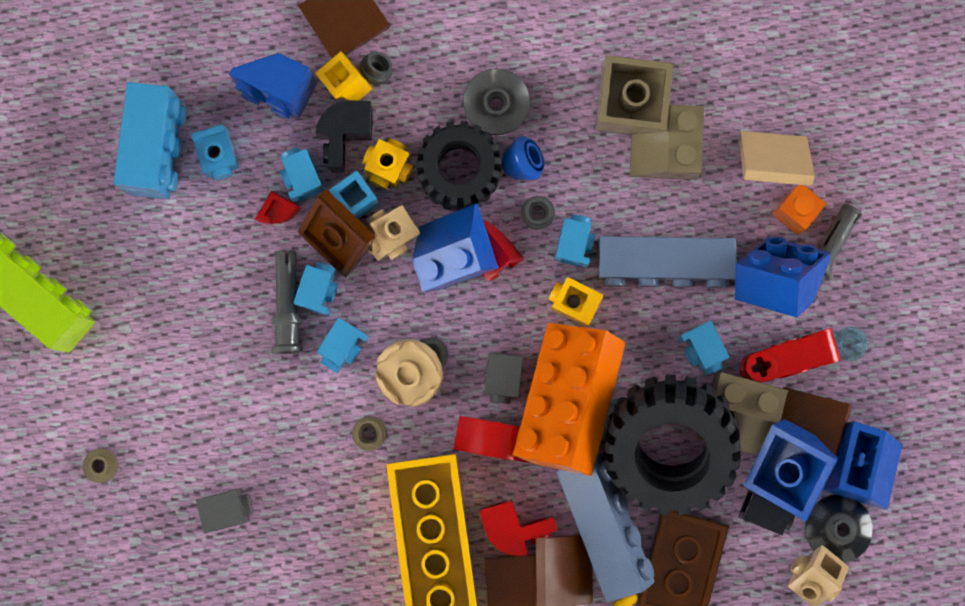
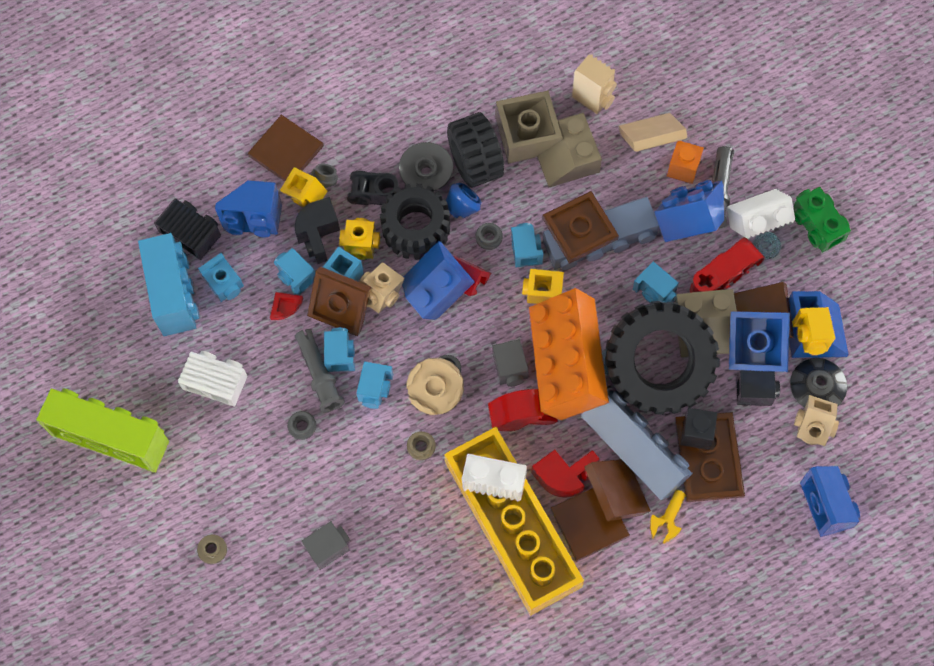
camera: 15 degrees left, 15 degrees down
(165, 269) = (213, 378): none -> white brick
(197, 76) = (189, 227): none -> black brick
(236, 355) = (299, 417): none -> dark grey plate
(420, 102) = (368, 187): none -> black piece
(428, 519) = (494, 477): none -> white brick
(560, 106) = (475, 149): none -> black tyre
(644, 248) = (580, 227): none -> reddish brown tile
(681, 538) = (698, 428): none -> black brick
(731, 74) = (594, 84): none -> tan brick
(859, 308) = (761, 213): none -> white brick
(859, 485) = (814, 329): none -> yellow brick
(925, 336) = (821, 219): none -> green brick

